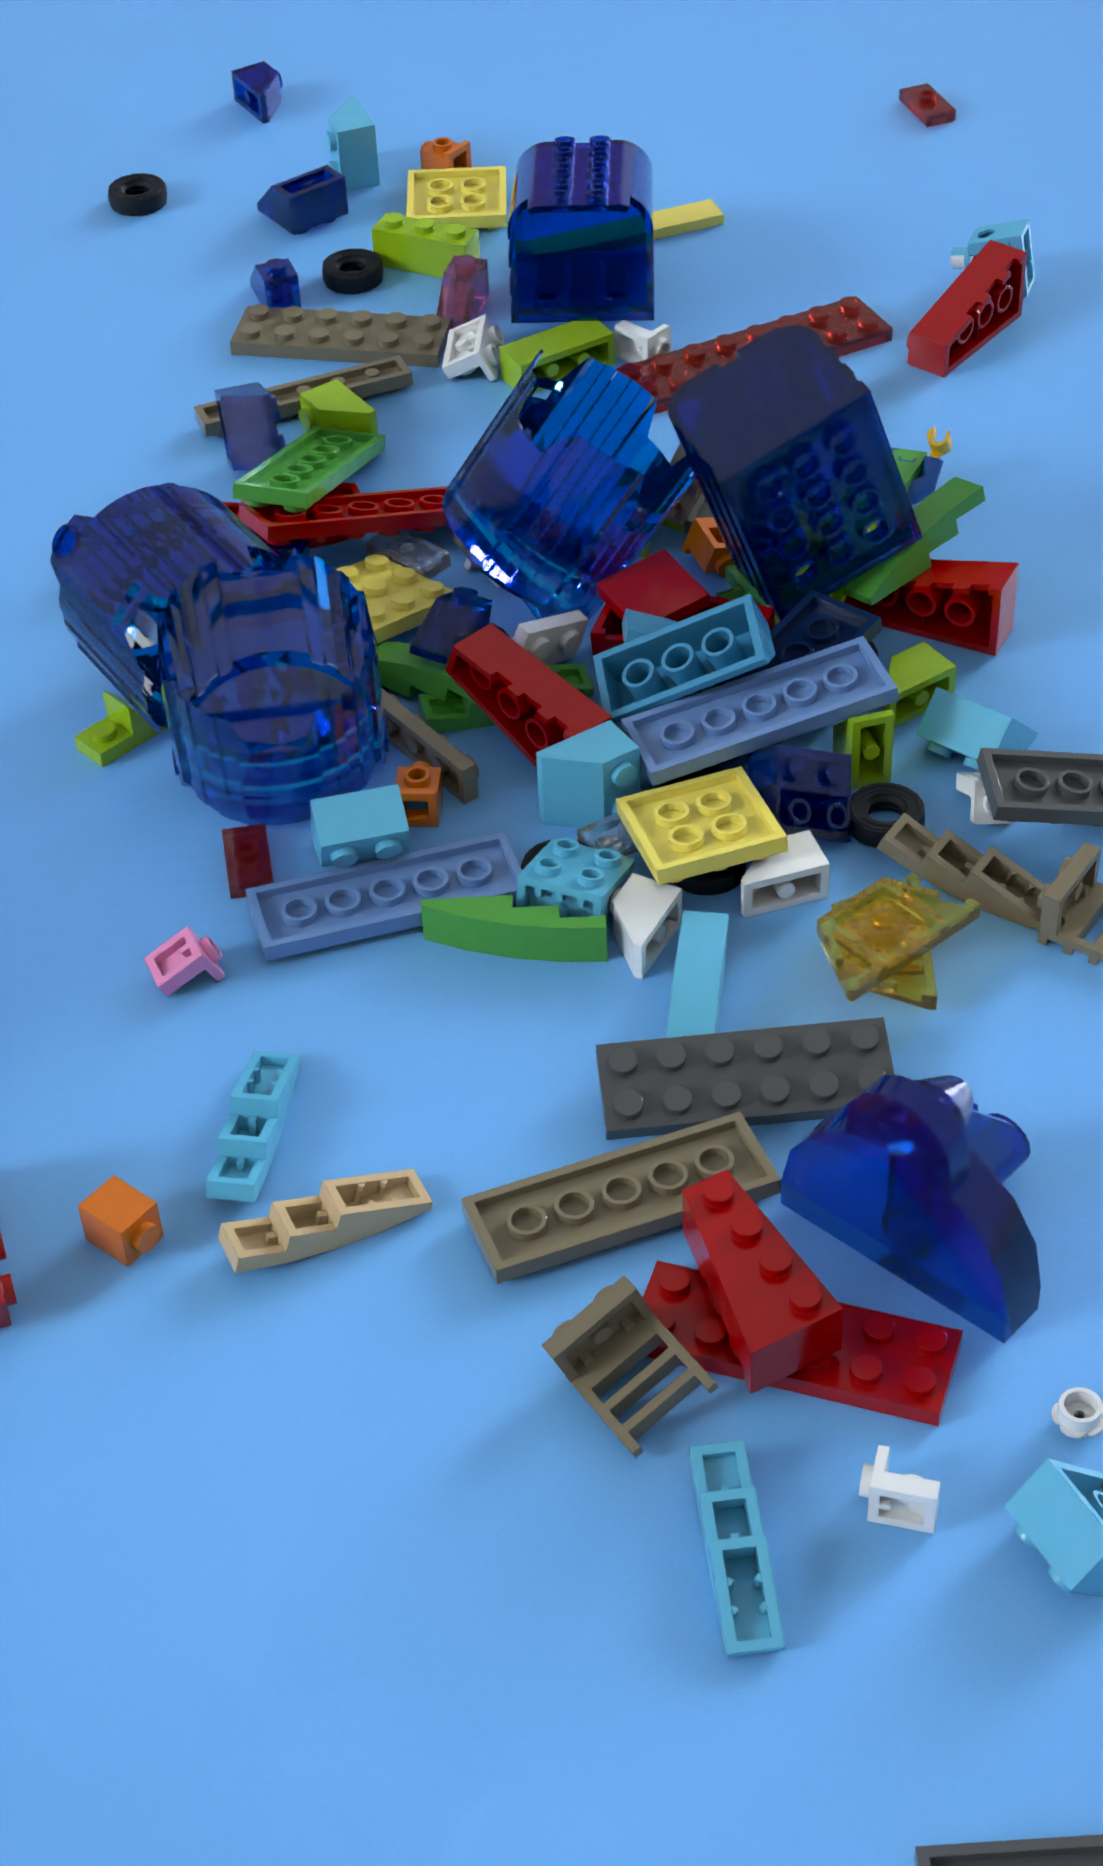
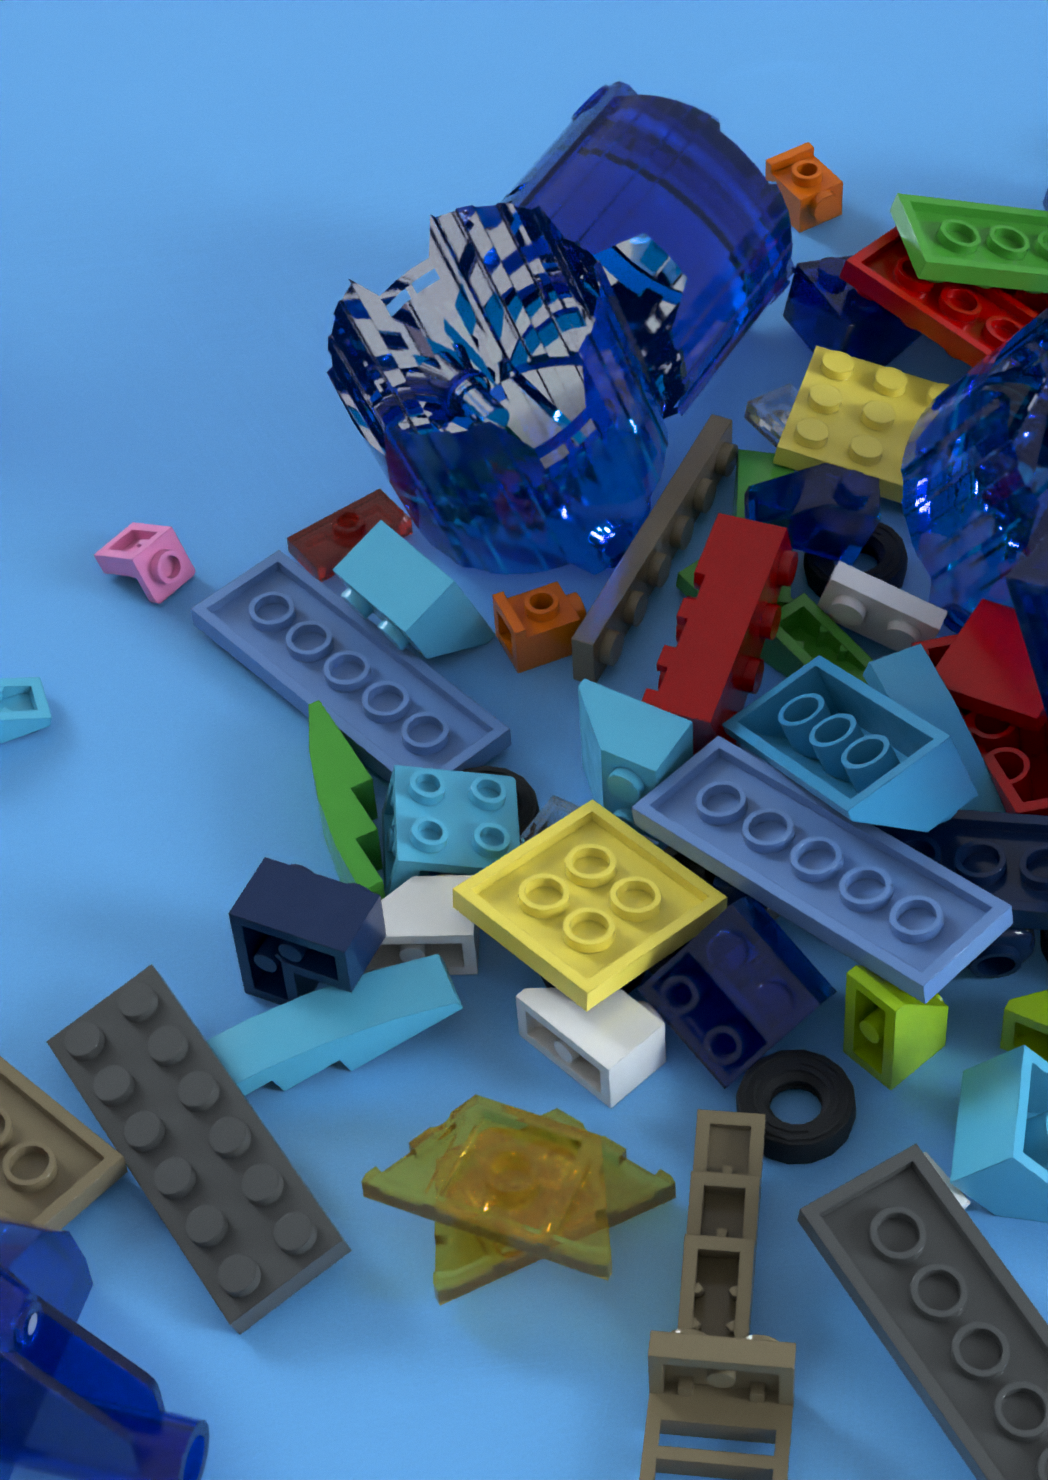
camera: 65 degrees right, 5 degrees up
(627, 955) = (303, 931): none -> dark blue brick

